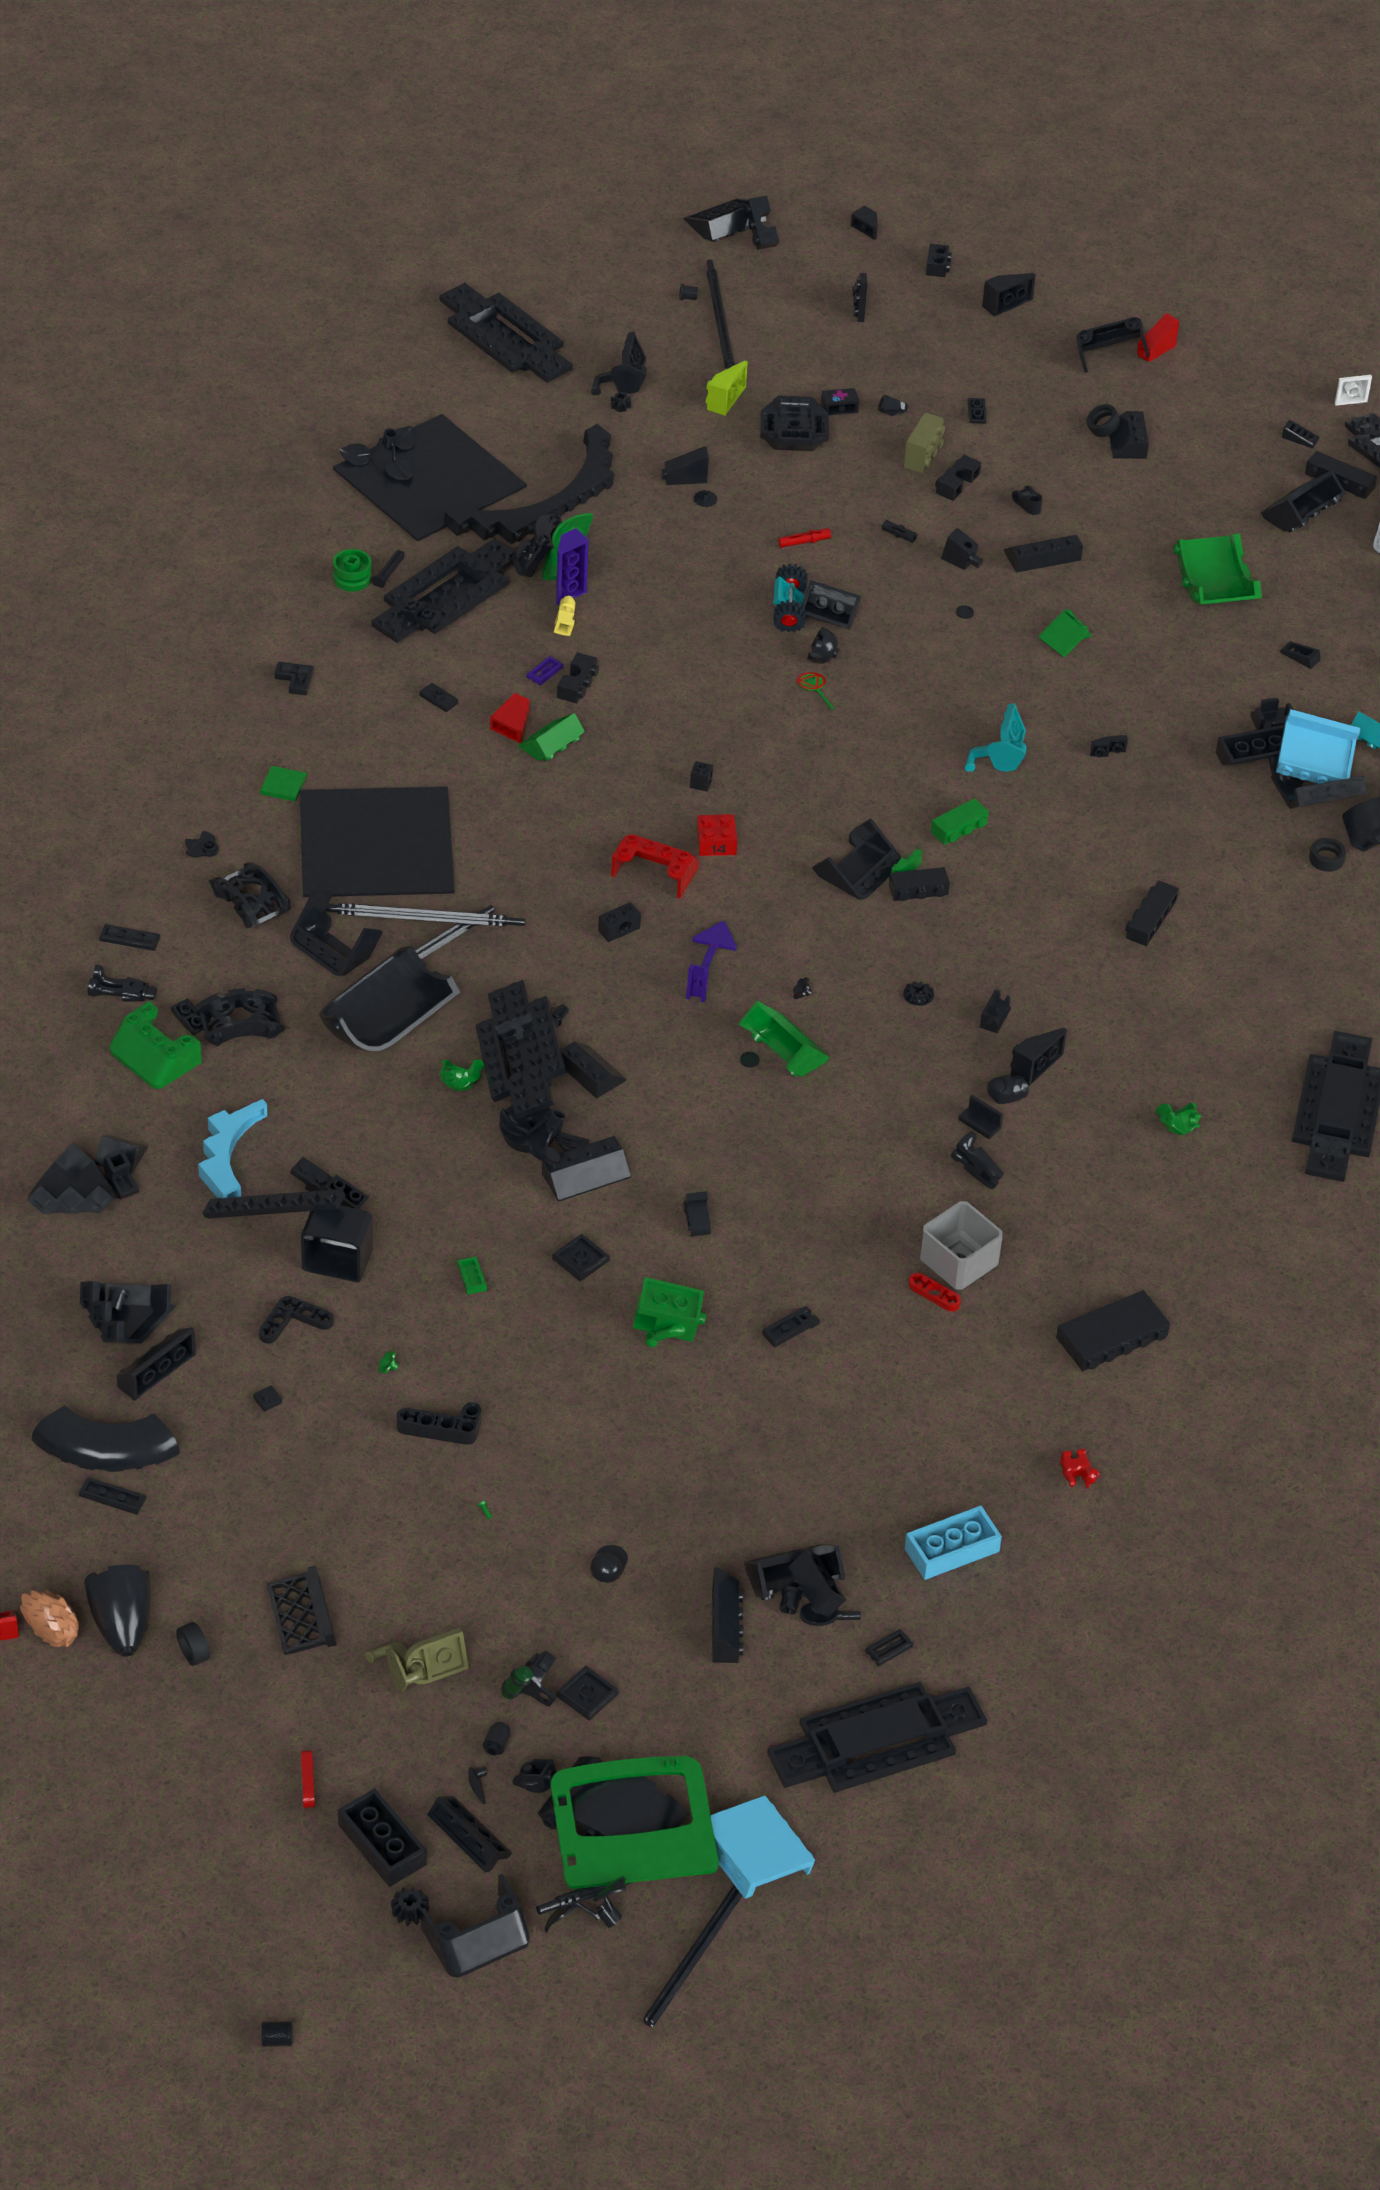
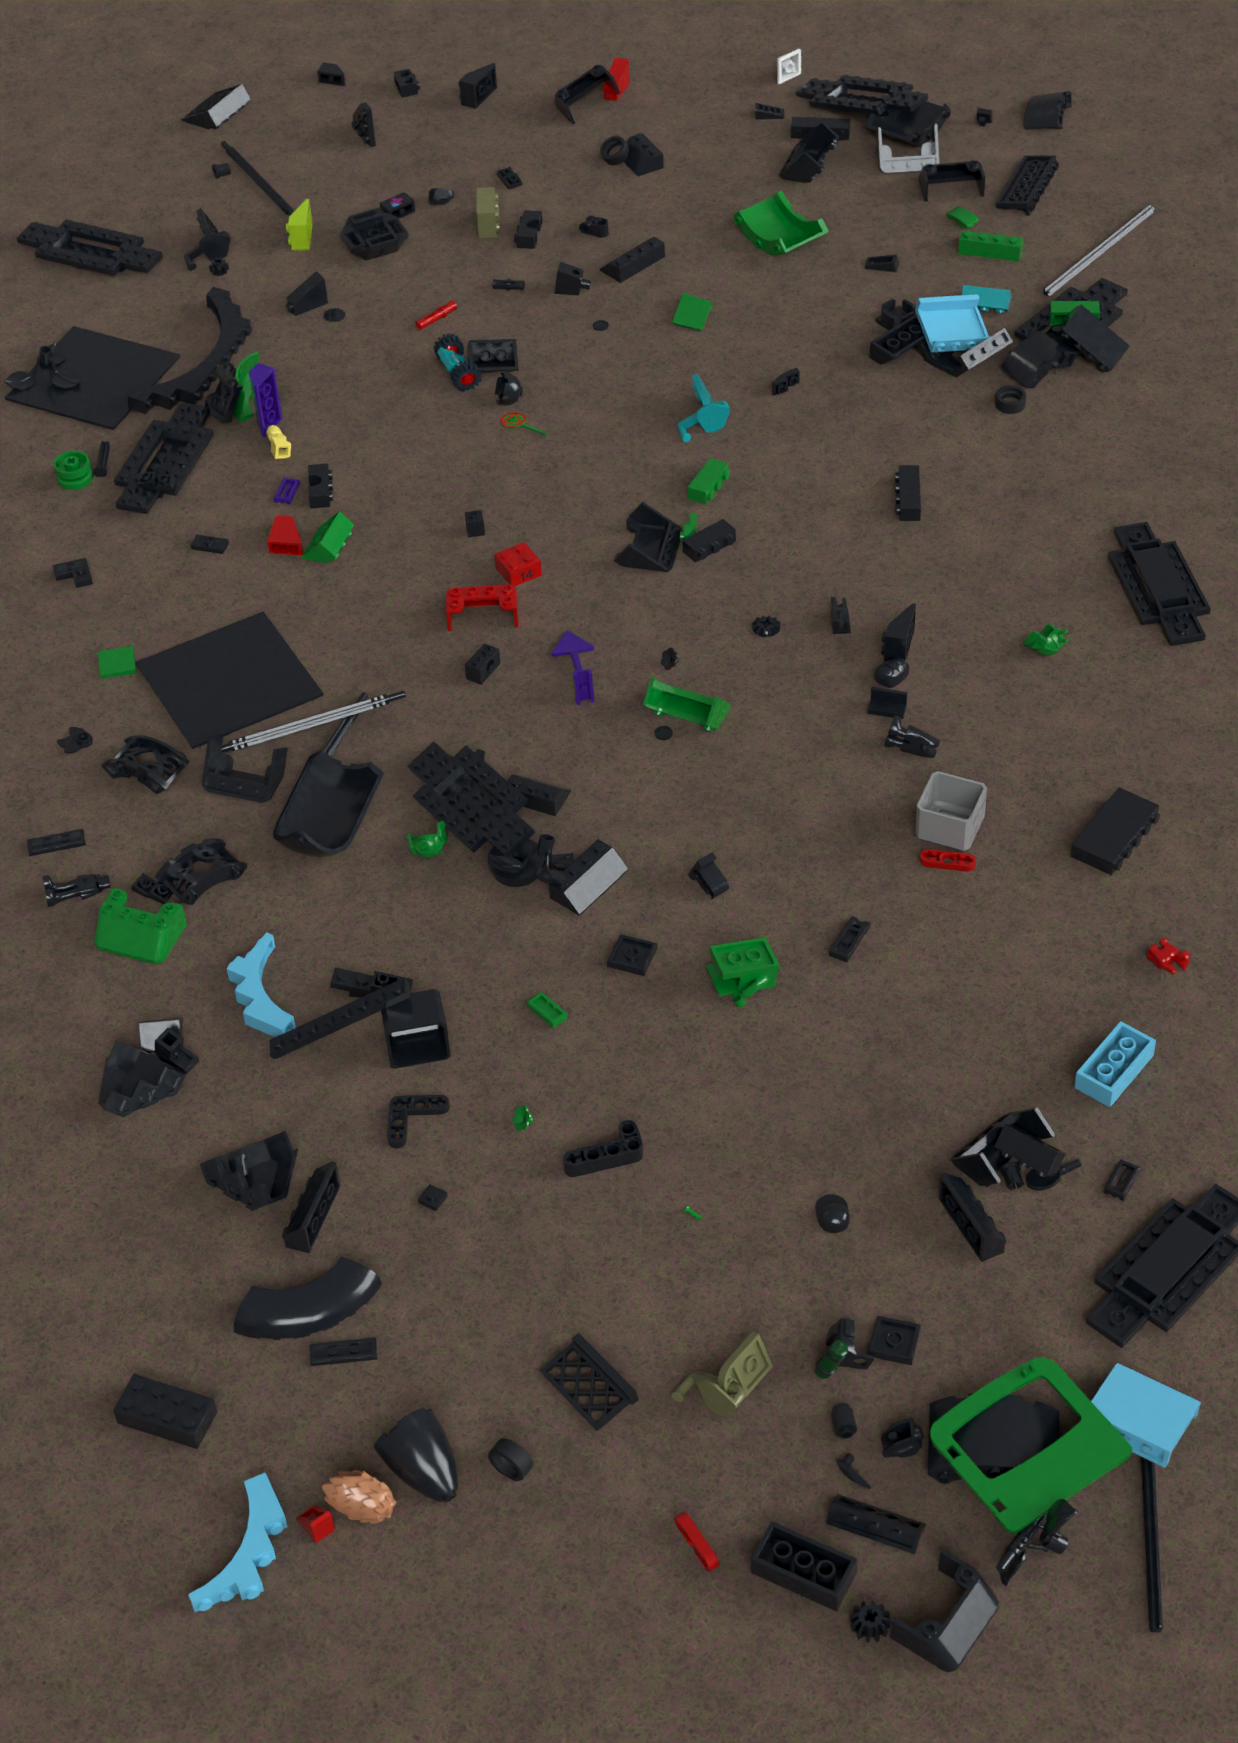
camera: 20 degrees left, 0 degrees up
(763, 236) = (256, 109): black arch -> none

